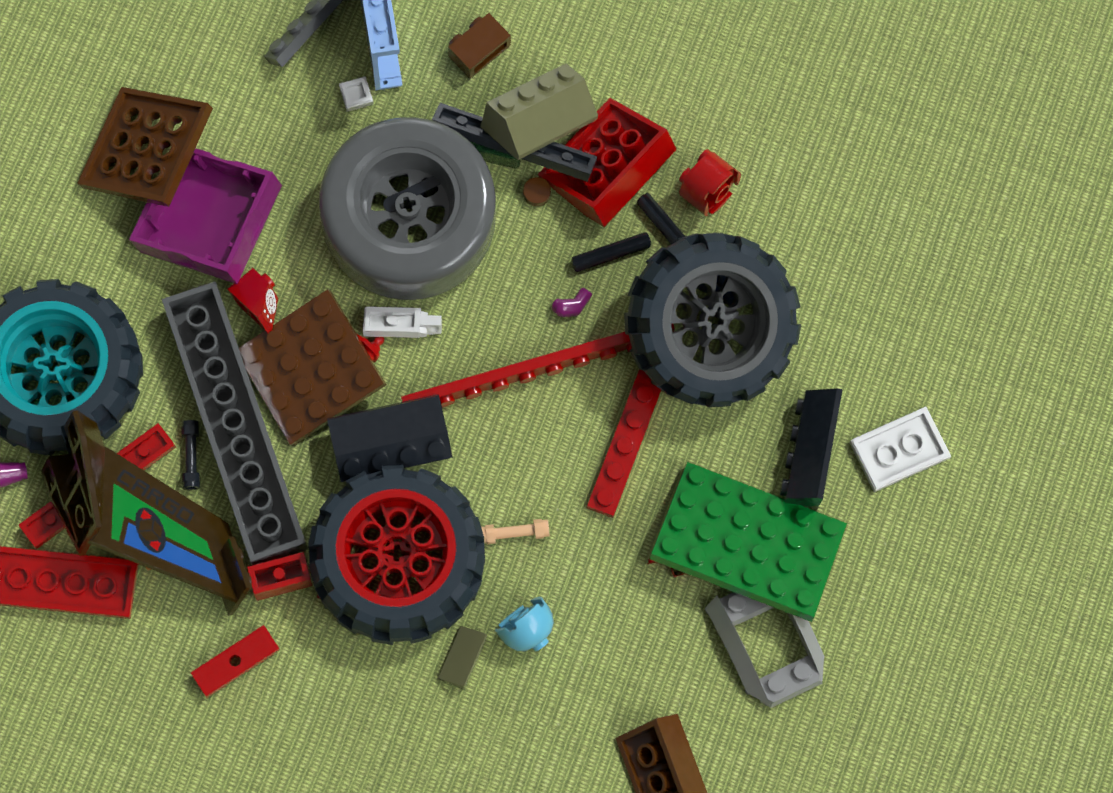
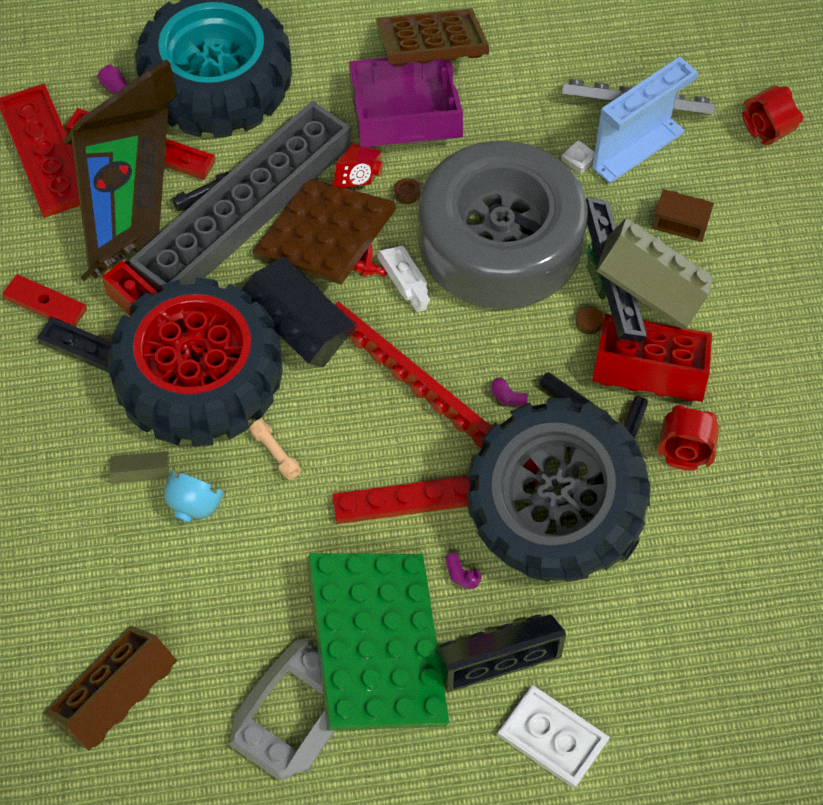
camera: 65 degrees right, 15 degrees down
(301, 269) = (407, 191): none -> reddish brown tile
(303, 650) = (75, 343): none -> black plate
(722, 442) = (460, 576): none -> magenta arm

